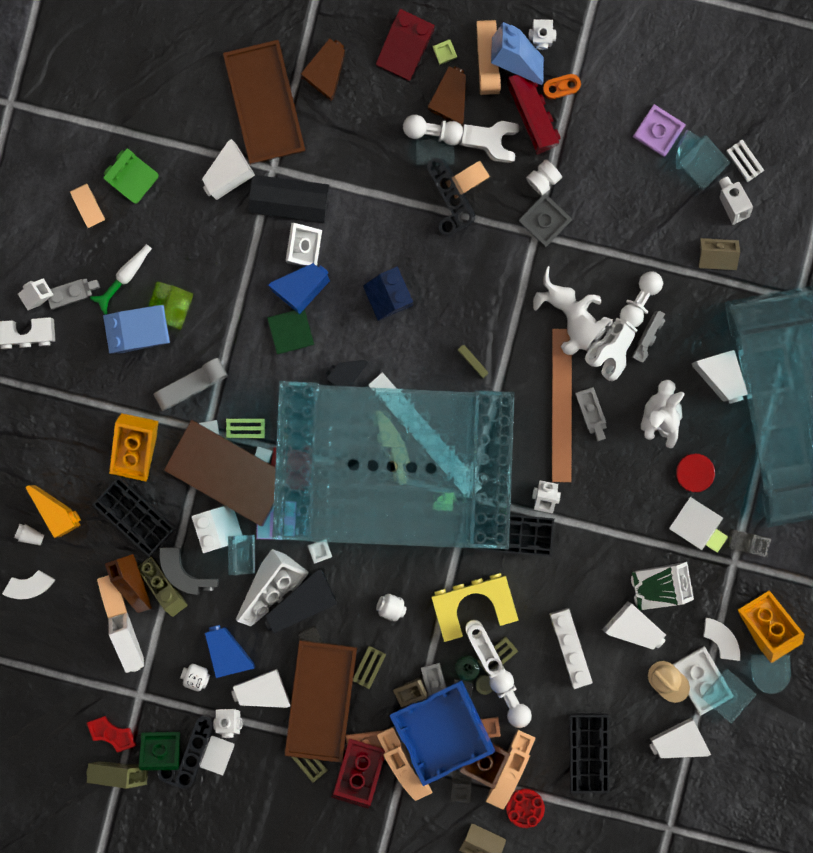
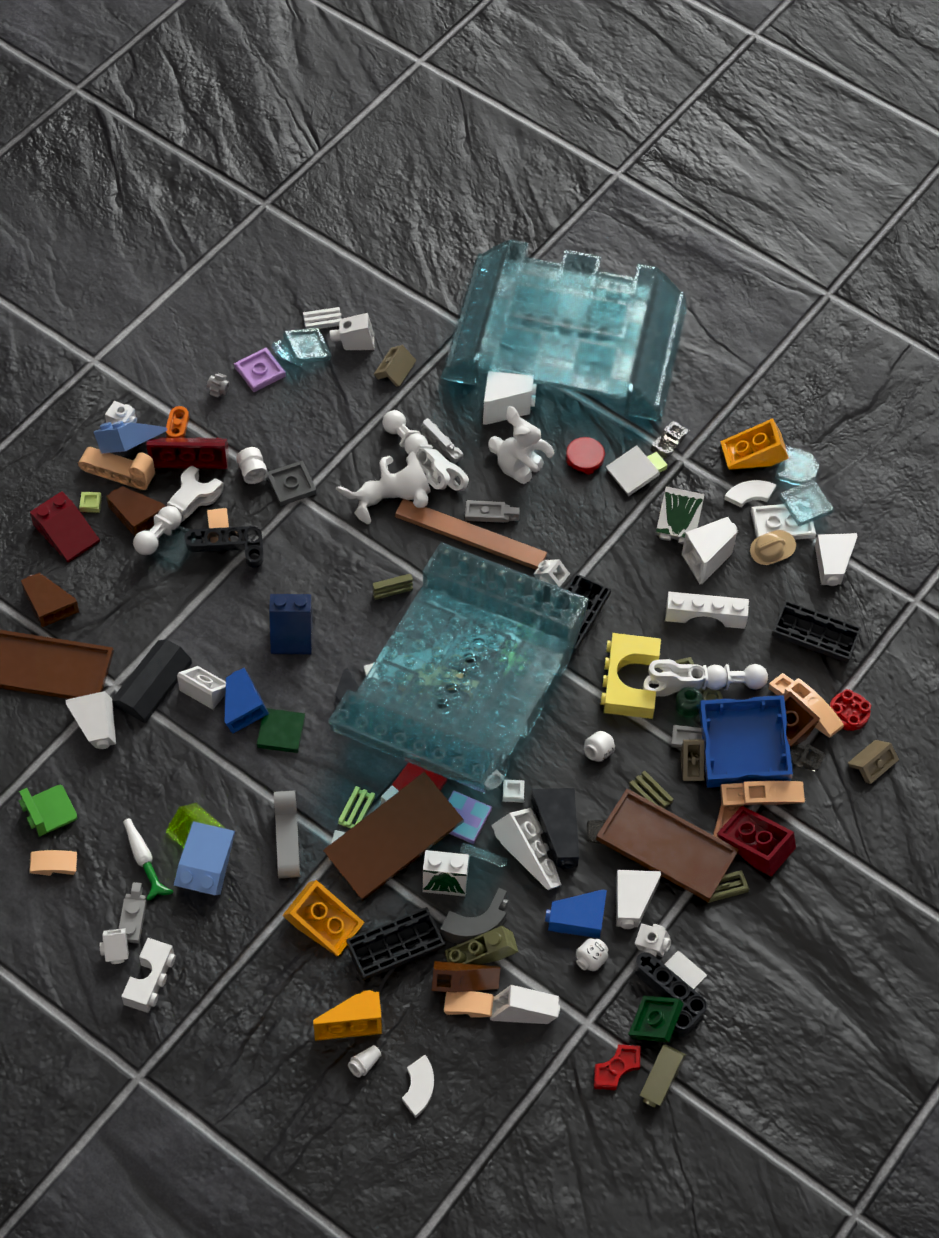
camera: 70 degrees left, 30 degrees down
(619, 102) = (218, 385): none -> light grey gear

